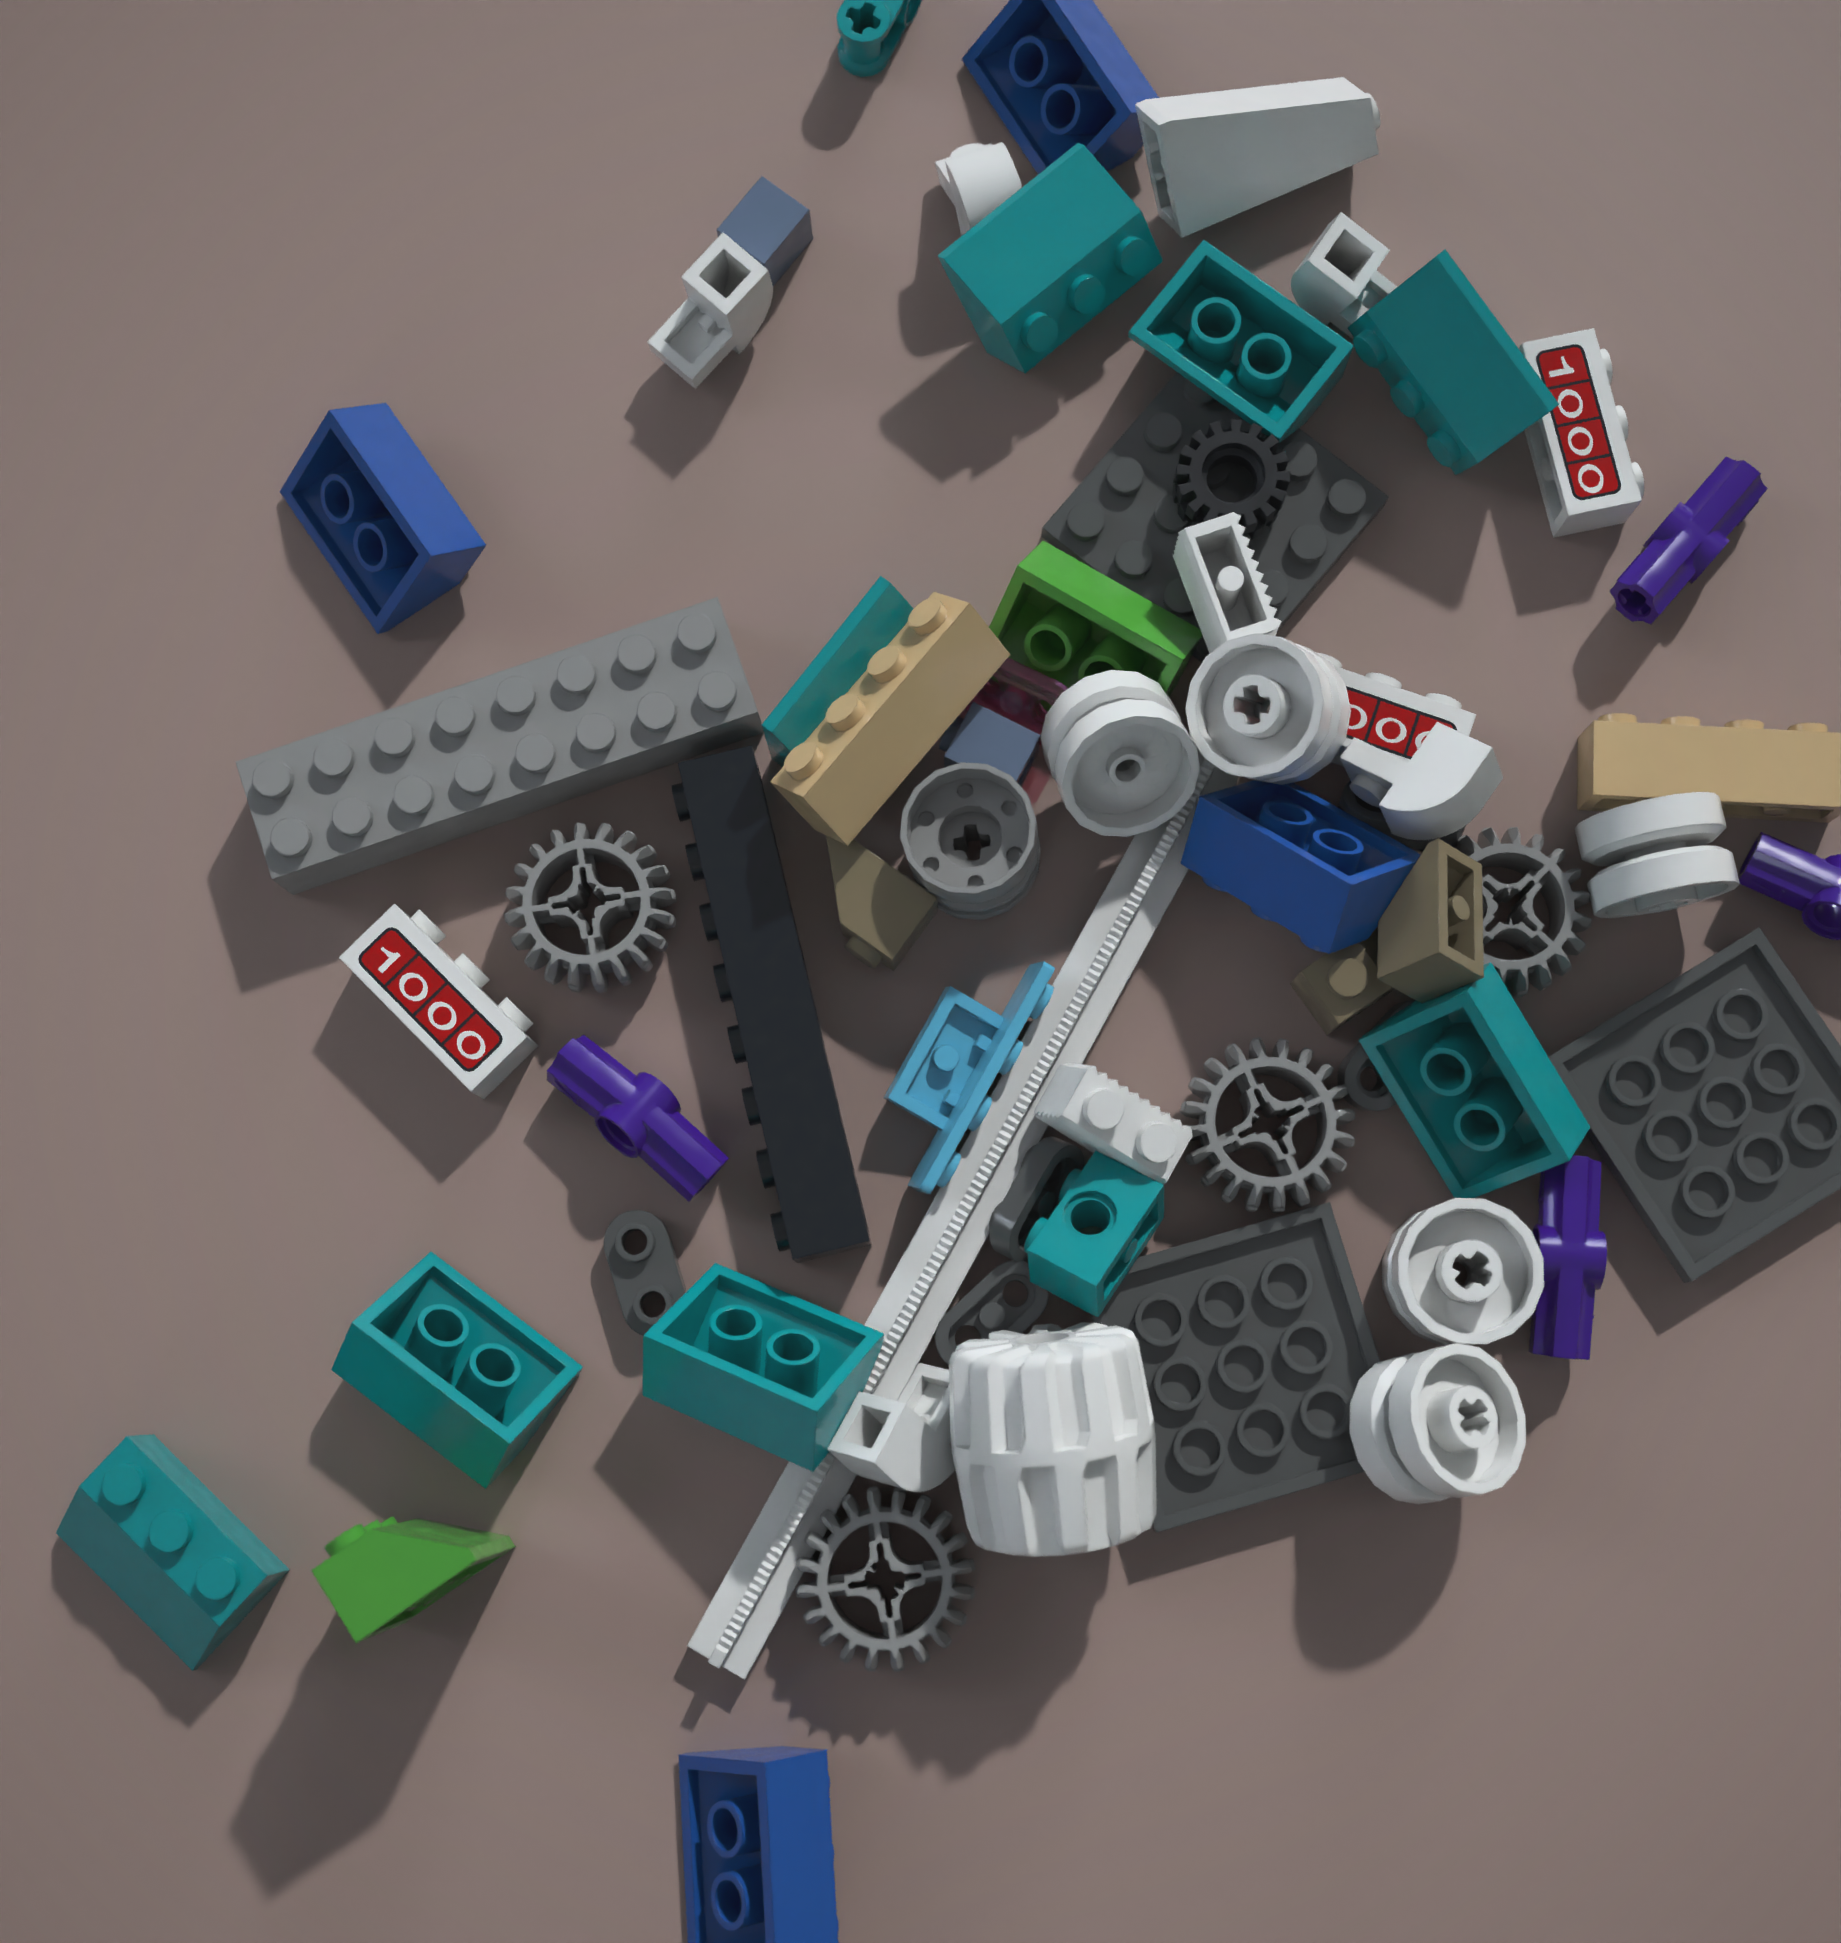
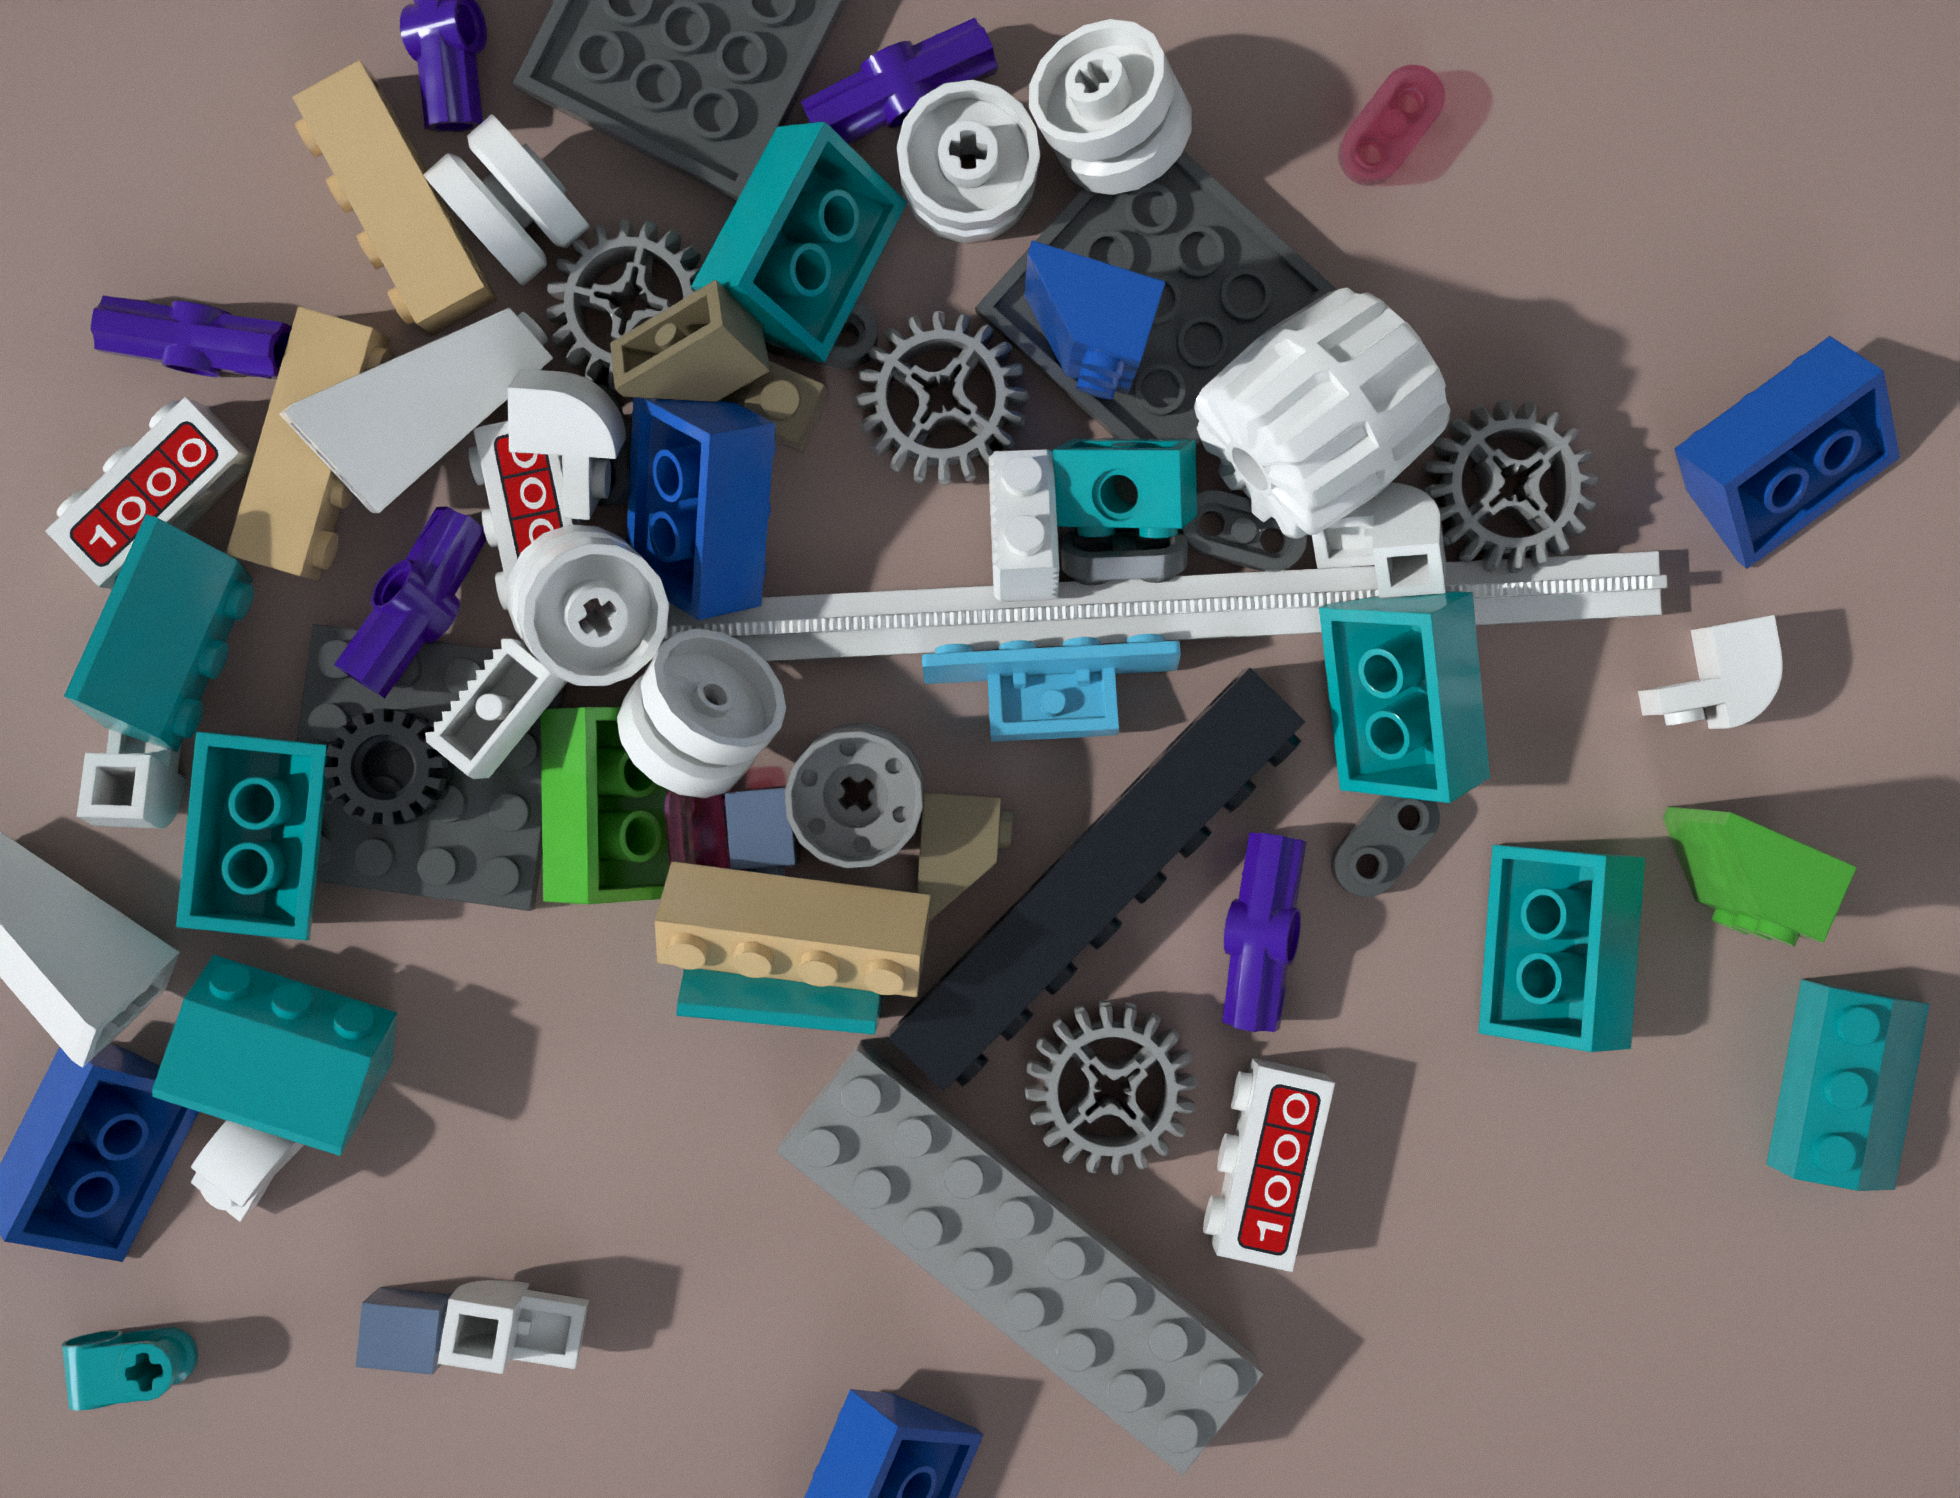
camera: 130 degrees left, 10 degrees up
(589, 1679) = (1737, 675): none -> white brick
(1254, 1278) = (1091, 316): none -> blue slope
(1275, 1677) = (1389, 127): none -> clear pink plate
(1357, 582) = (413, 601): none -> dark purple piece
(1521, 674) = (412, 410): none -> white slope
(1541, 579) = (290, 492): none -> tan brick

